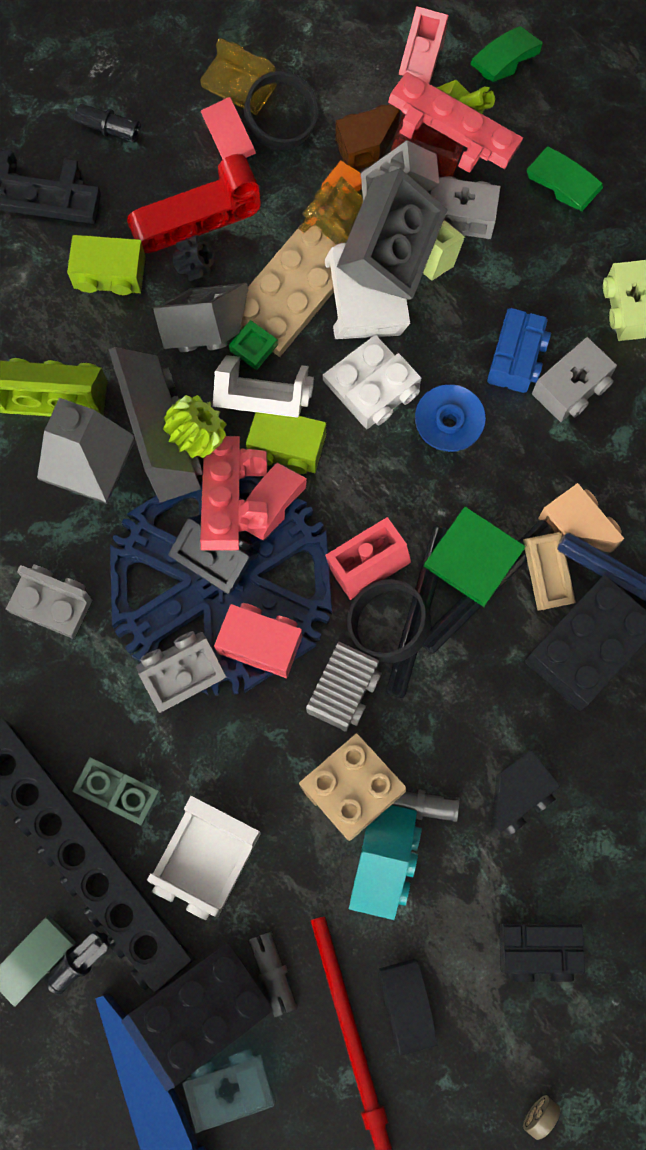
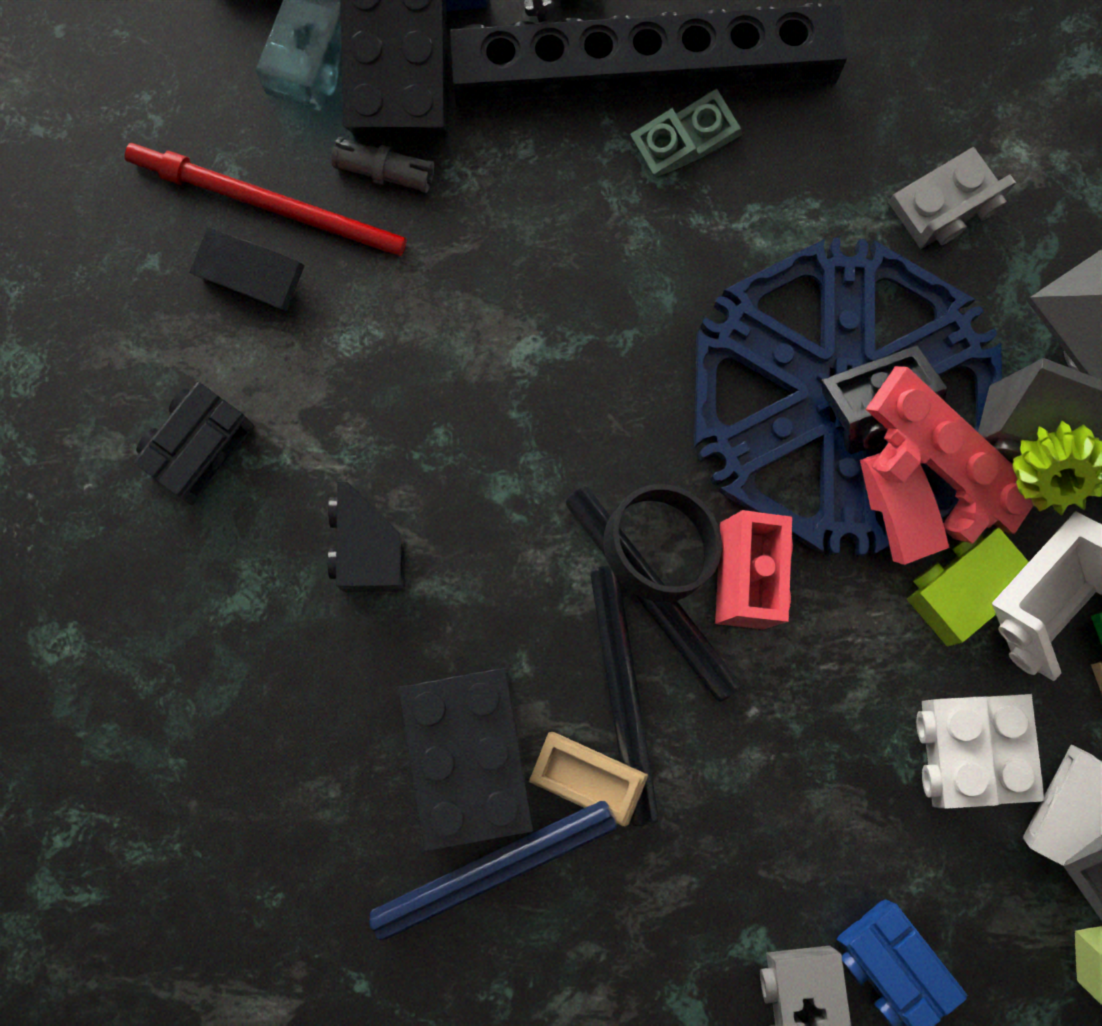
camera: 125 degrees right, 5 degrees up
(179, 670) = (769, 268): light grey bracket -> none
(203, 859) = (548, 173): white panel -> none
(259, 639) = (742, 371): coral brick -> none
(343, 687) = (623, 439): light grey brick -> none
(352, 787) = (504, 359): tan bracket -> none
(386, 863) = (407, 340): teal brick -> none
(430, 805) = (435, 431): dark grey pin -> none
(455, 404) = (892, 813): blue dish -> none
(474, 556) = (668, 698): green tile -> none
(542, 1118) = (42, 322): dark tan tile -> none
(579, 514) = (622, 863): light nougat slope -> none

